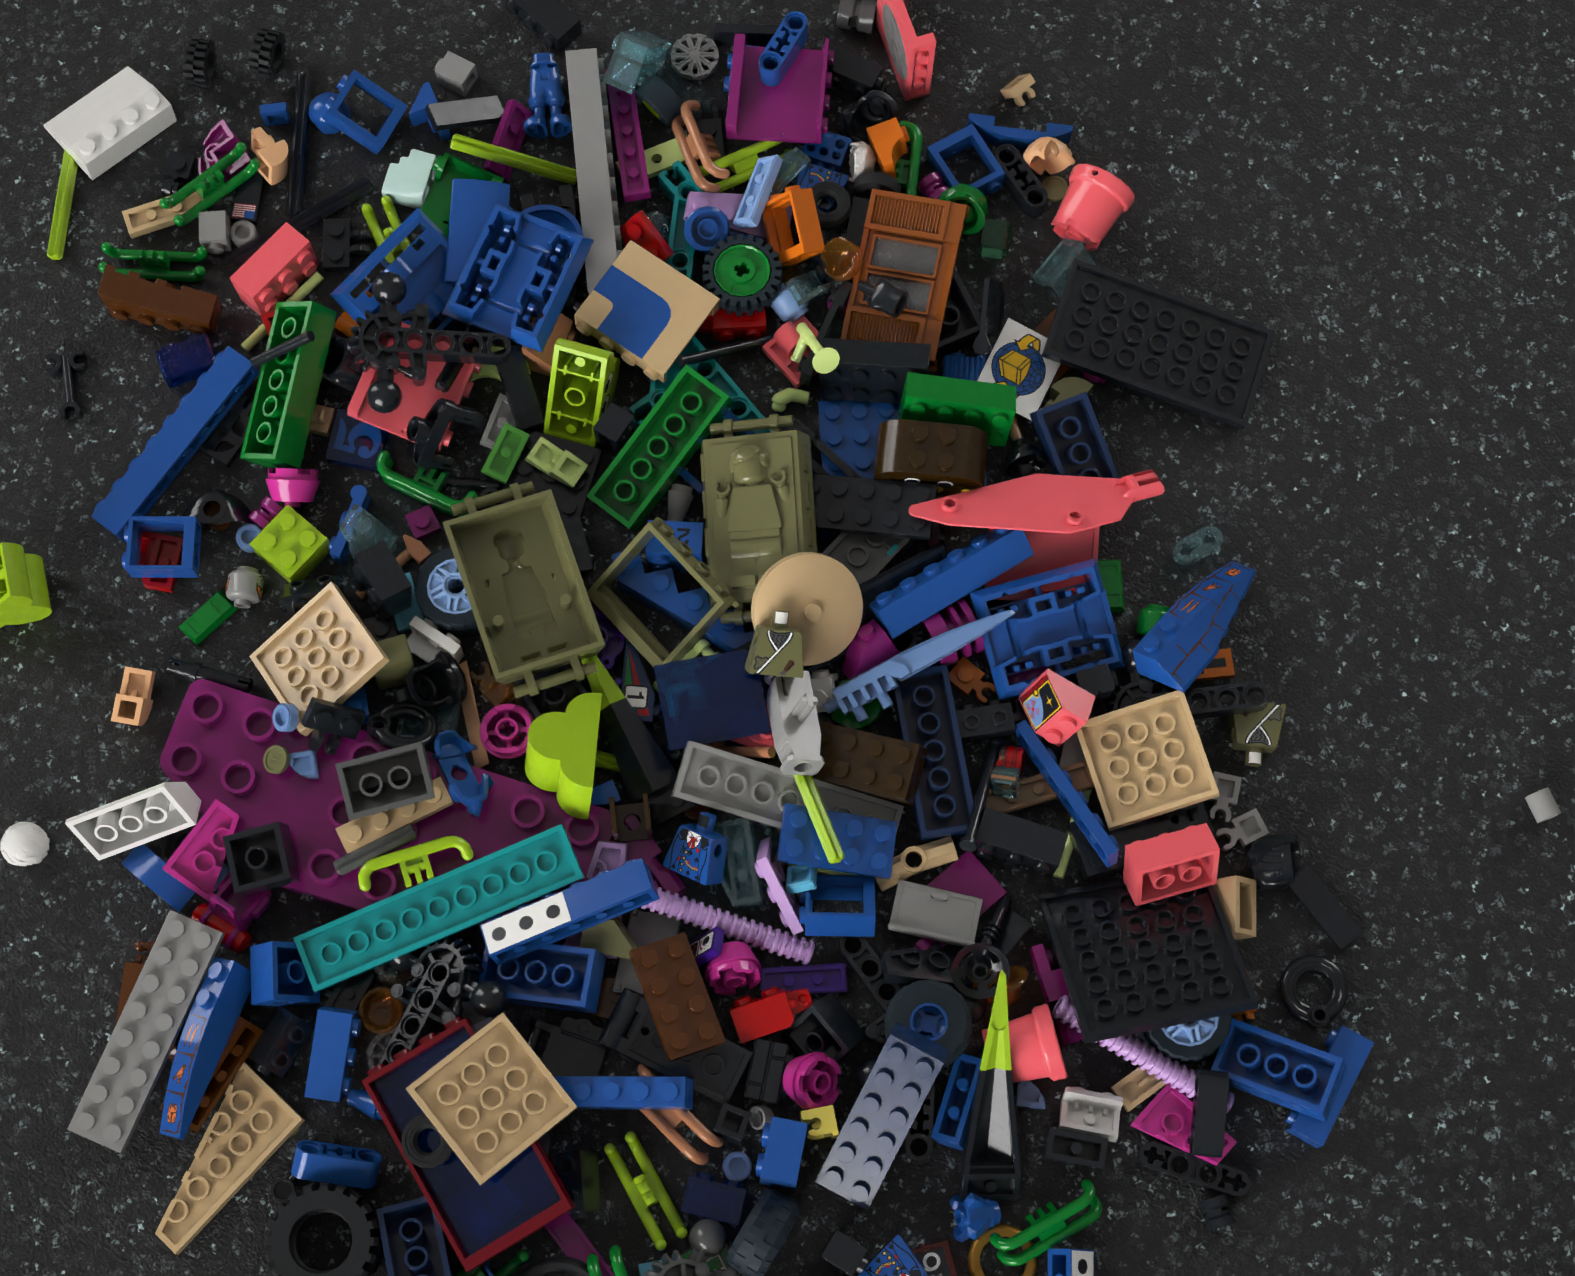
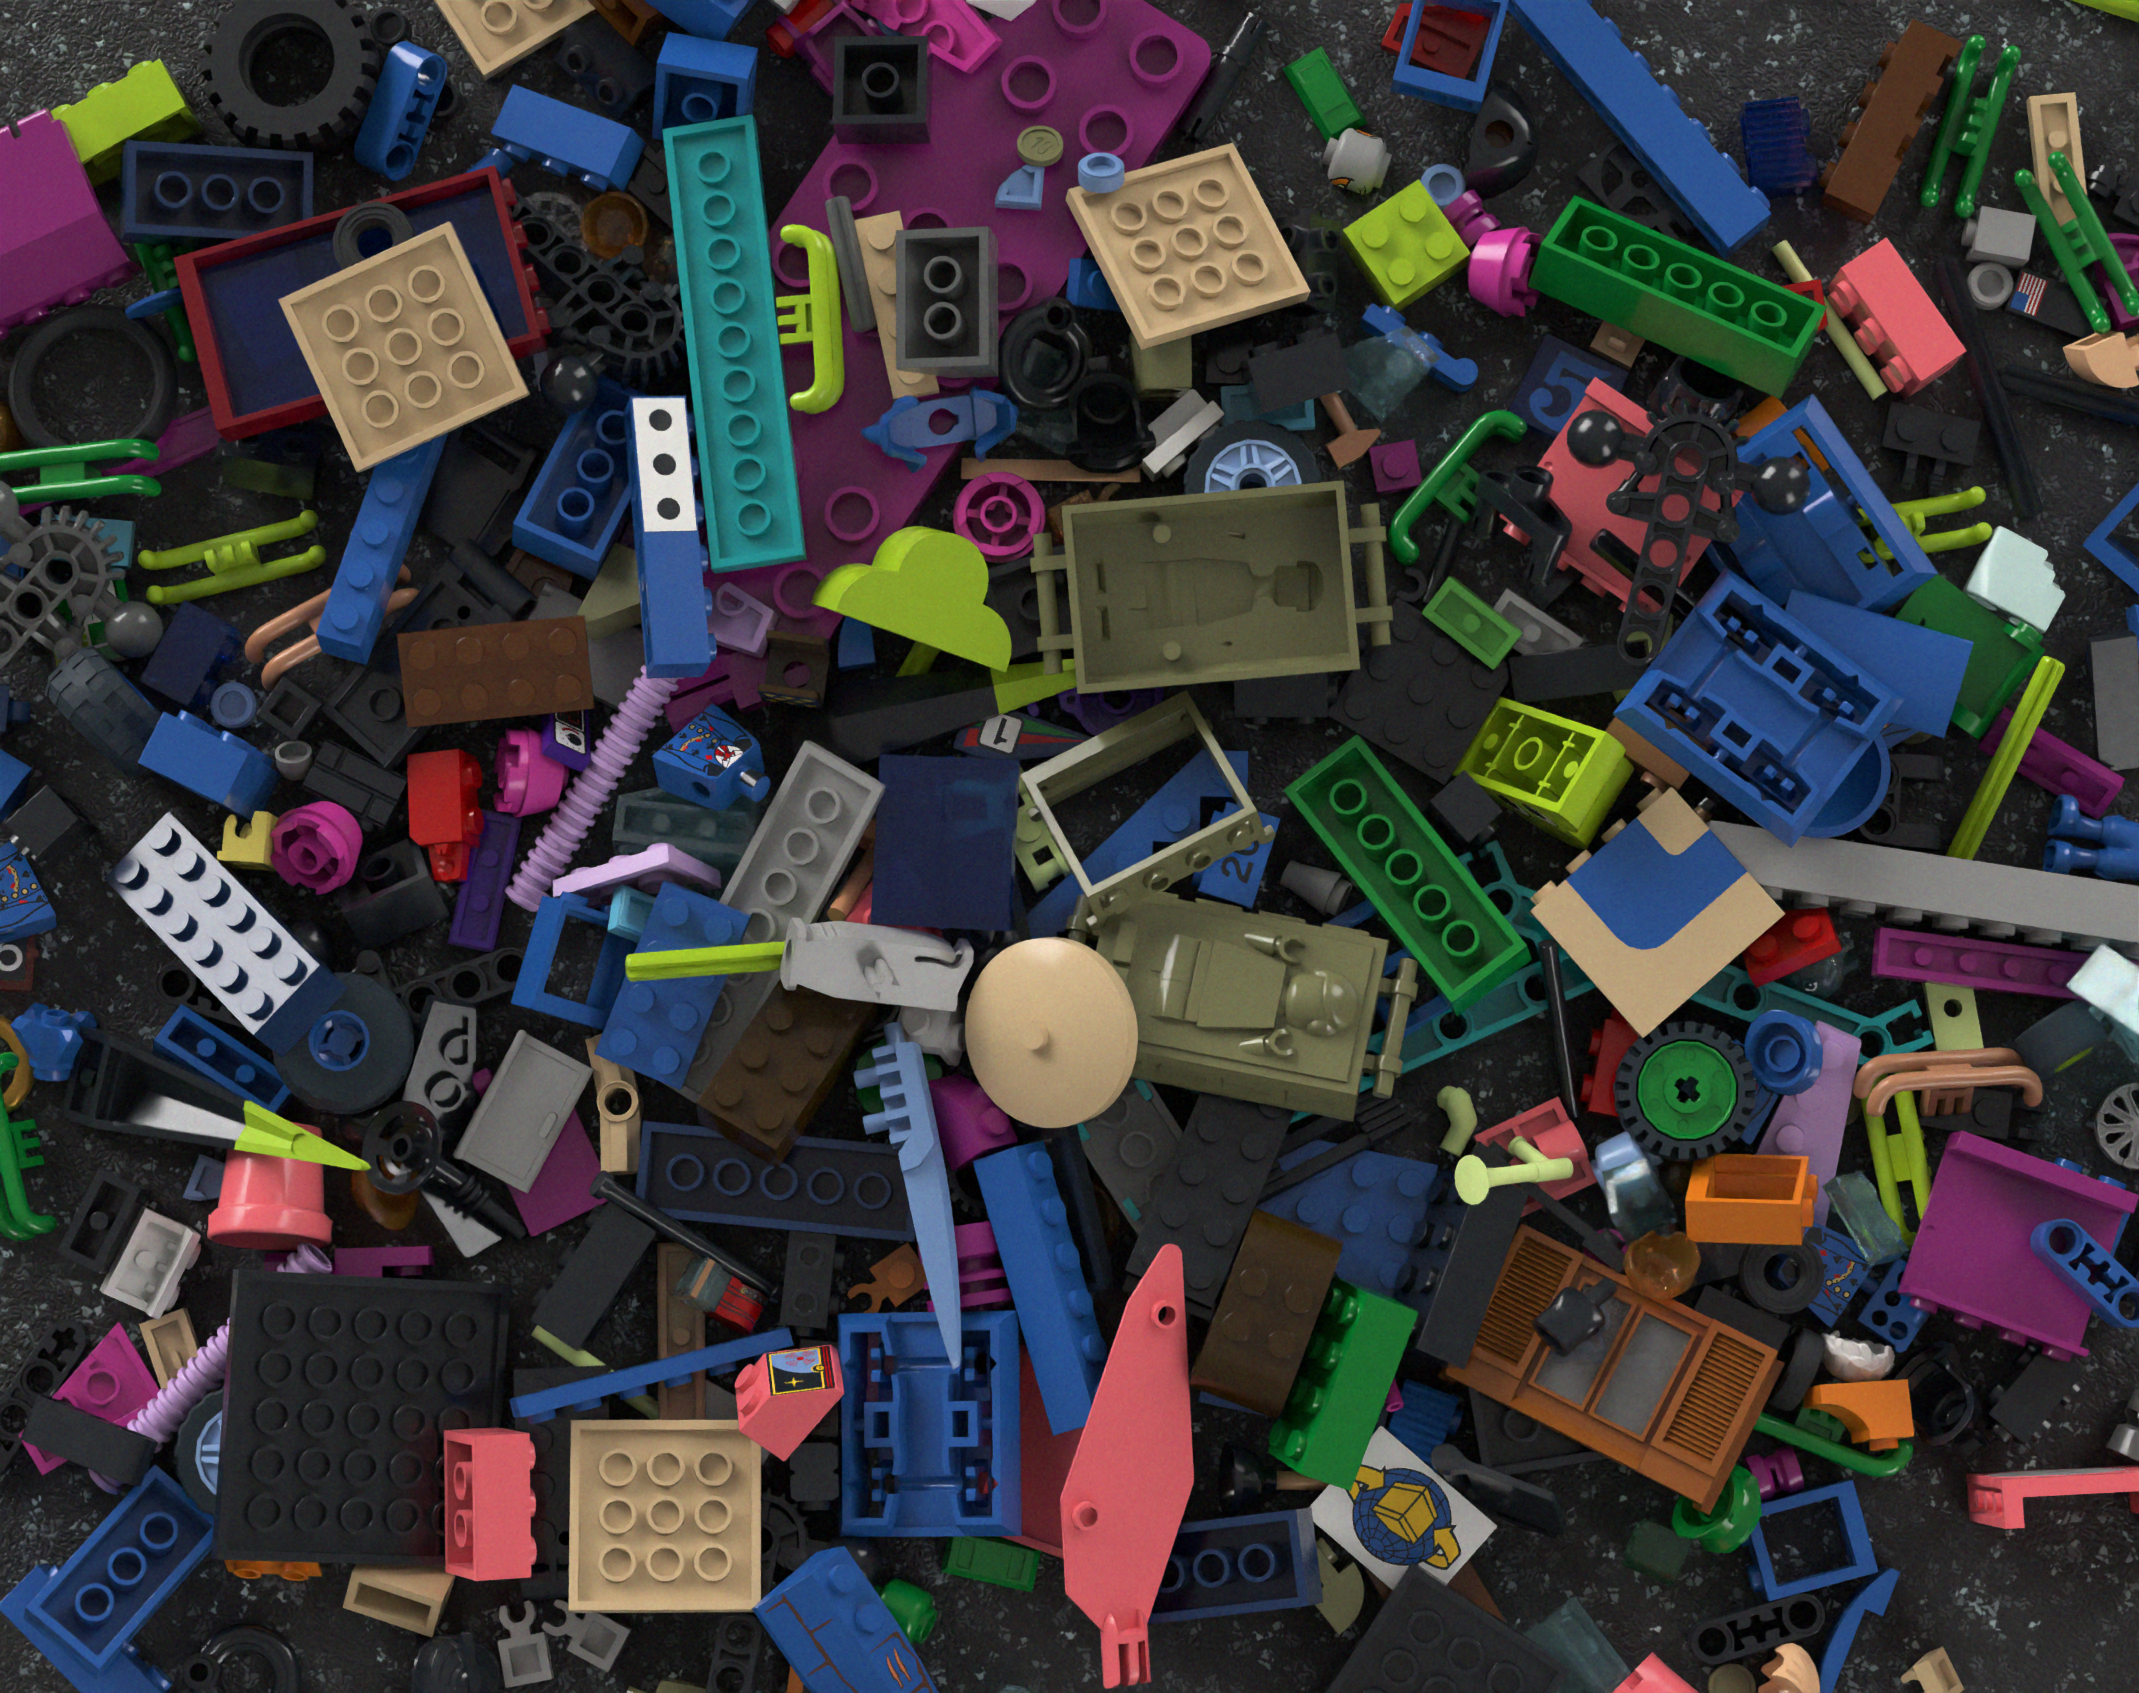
camera: 110 degrees right, 10 degrees up
(282, 349) = (1729, 295): black bar -> none
(333, 719) = (1074, 243): black hinge -> none
(556, 463) = (1435, 702): yellowish green slope -> none
(757, 192) = (1832, 1158): light blue tile -> none
(776, 648) = (987, 958): olive torso -> none

